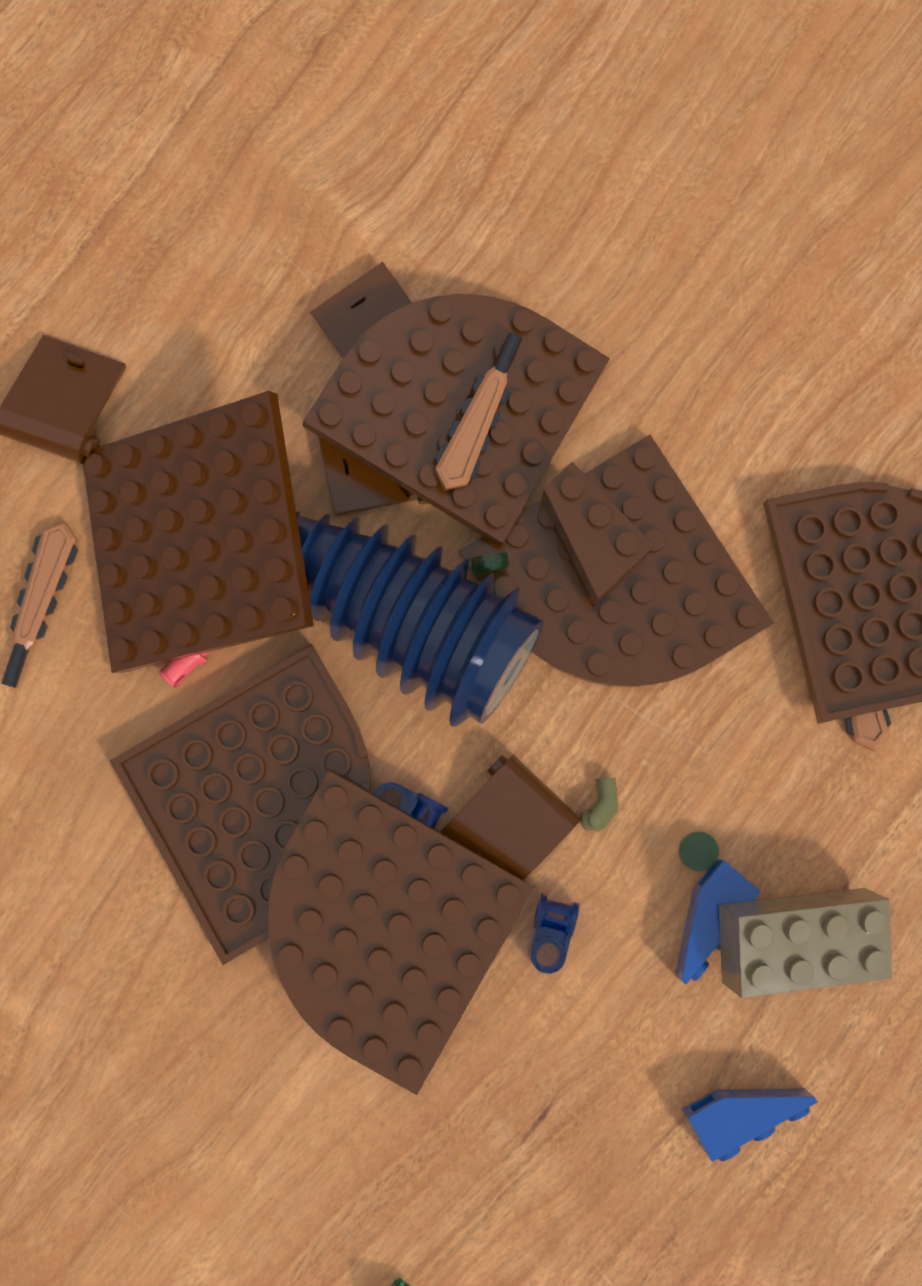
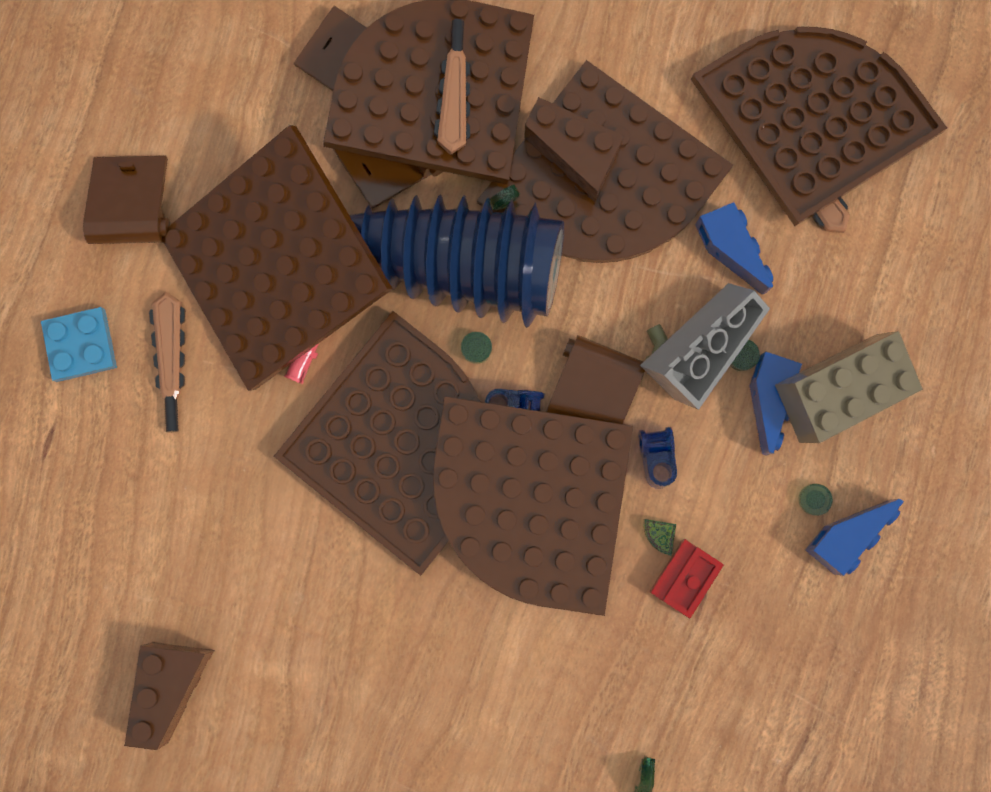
camera: 20 degrees left, 0 degrees up
(391, 722) = (476, 347): none -> clear green tile
(519, 1025) = (660, 535): none -> clear green tile
(528, 1089) = (686, 578): none -> red plate
(658, 825) = (706, 345): none -> light grey wedge
(716, 1055) = (815, 499): none -> clear green tile
(732, 709) = (730, 243): none -> blue slope

